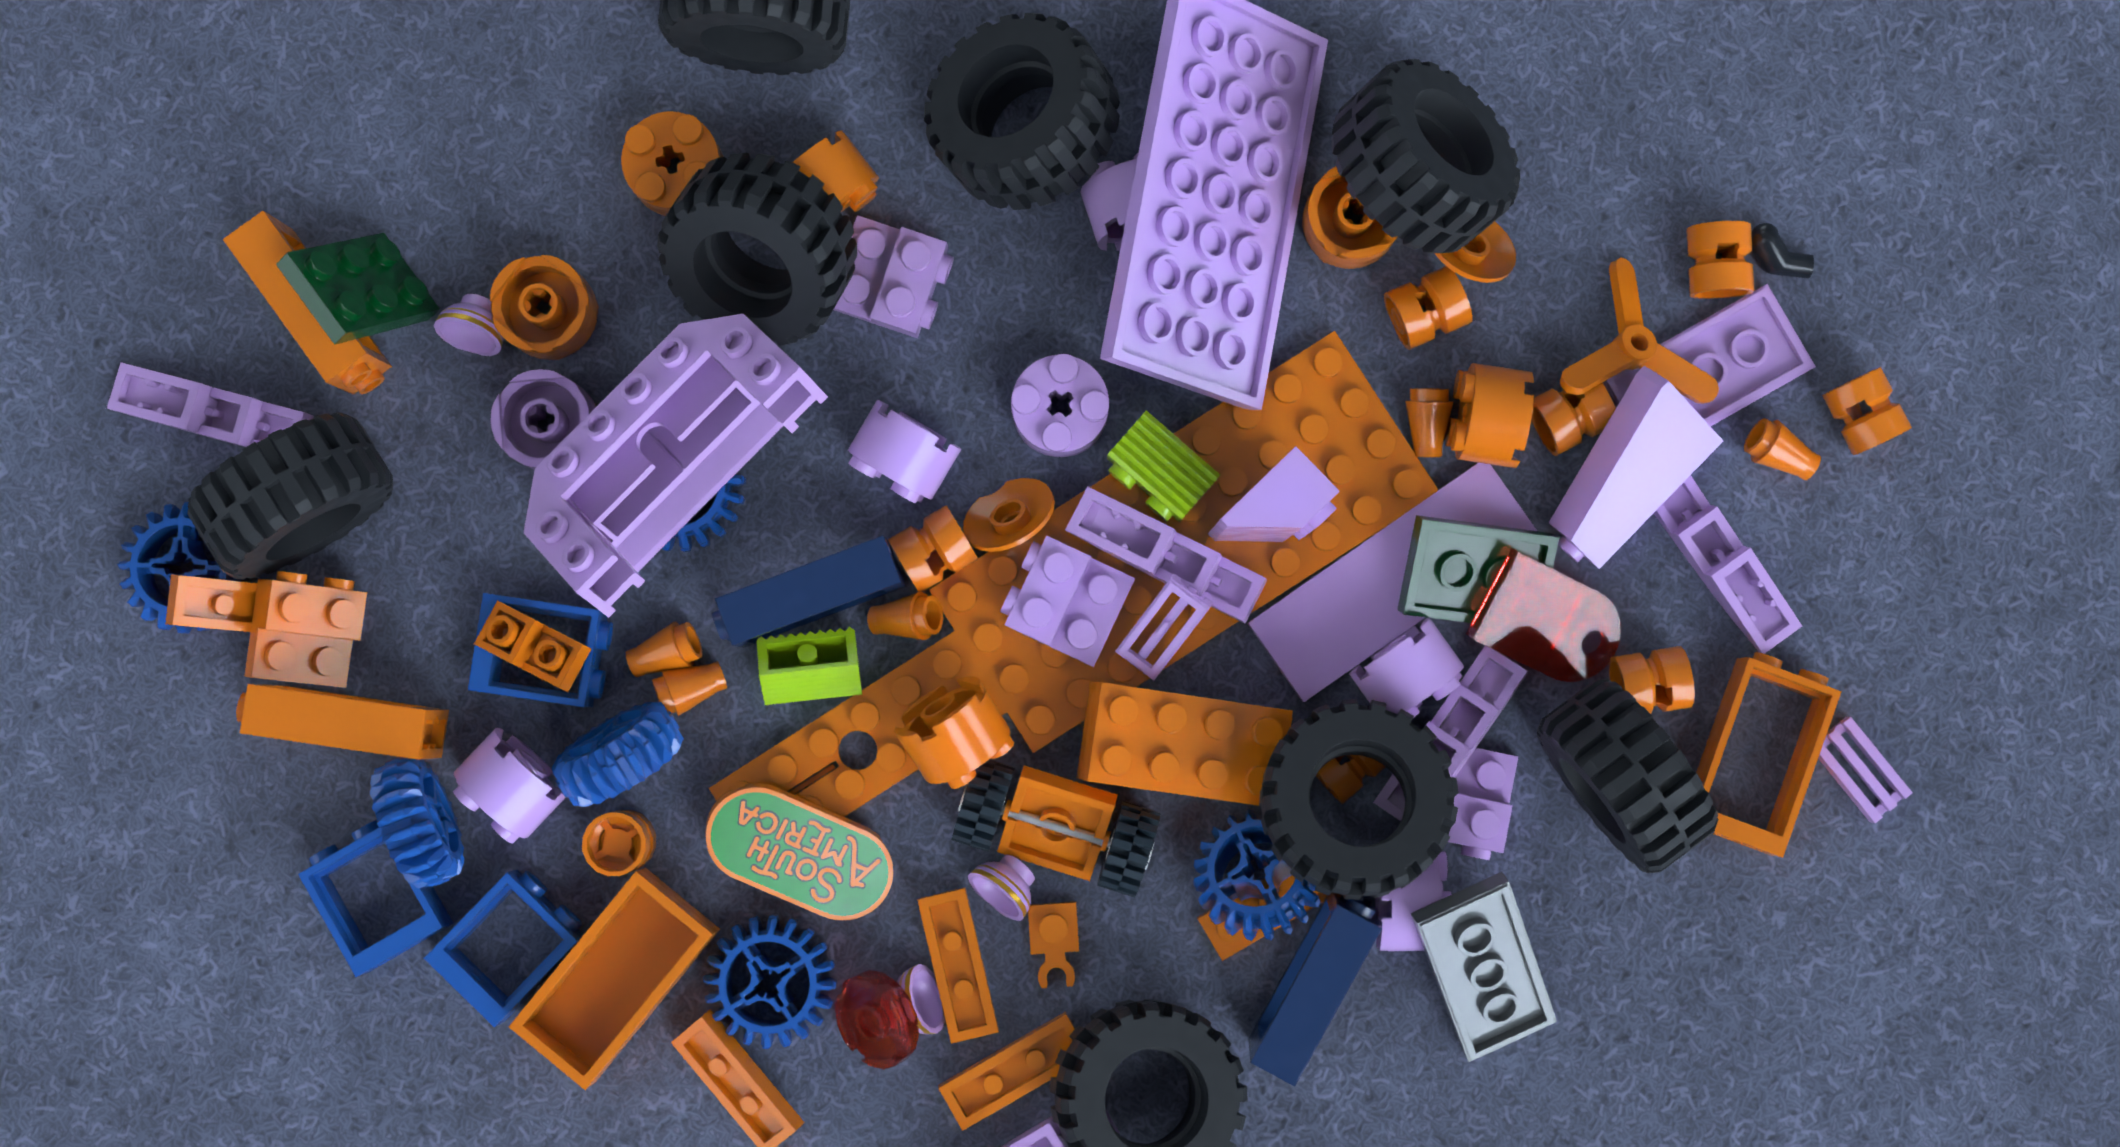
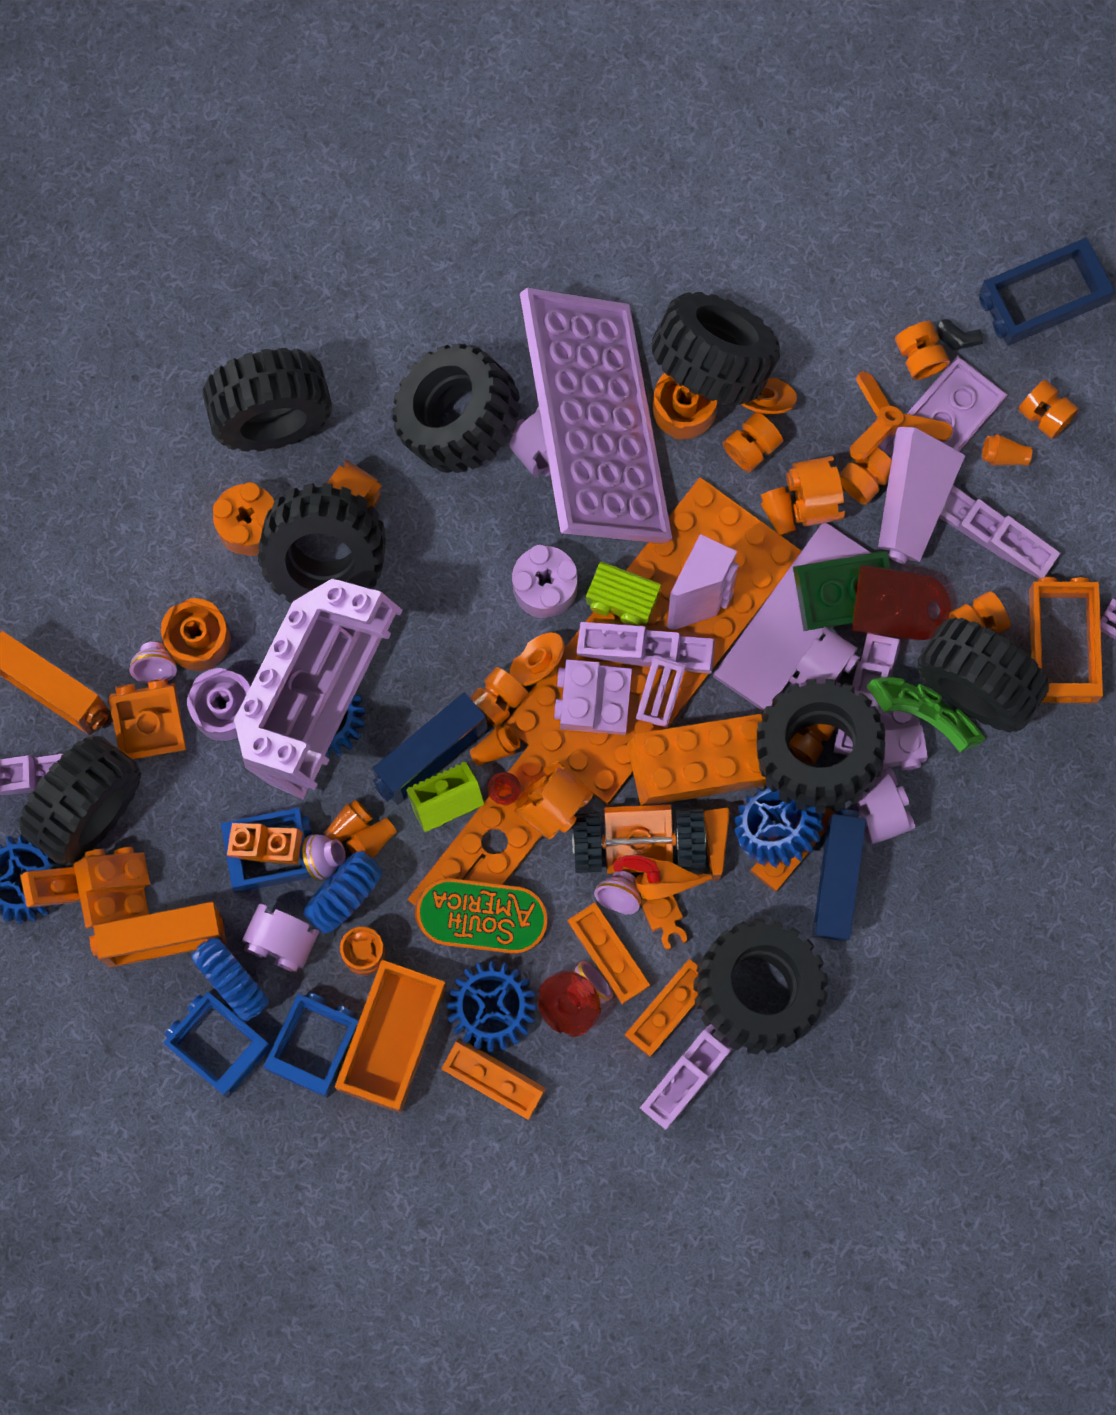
camera: 15 degrees left, 10 degrees down
(358, 287) = (76, 659): dark green plate -> none
(436, 403) = (147, 719): none -> orange plate
(608, 688) = (322, 856): none -> lavender piece
(876, 692) = (501, 782): none -> clear red cone
(895, 277) = (413, 541): lavender plate -> none
(903, 452) = (456, 642): lavender brick -> none
(1065, 894) = (659, 876): none -> orange piece
(1168, 853) = (716, 830): none -> orange slope
(1484, 966) = (942, 828): tile -> none
(1529, 776) = (925, 703): none -> bright green tile
(2007, 233) = (1091, 270): none -> dark blue window

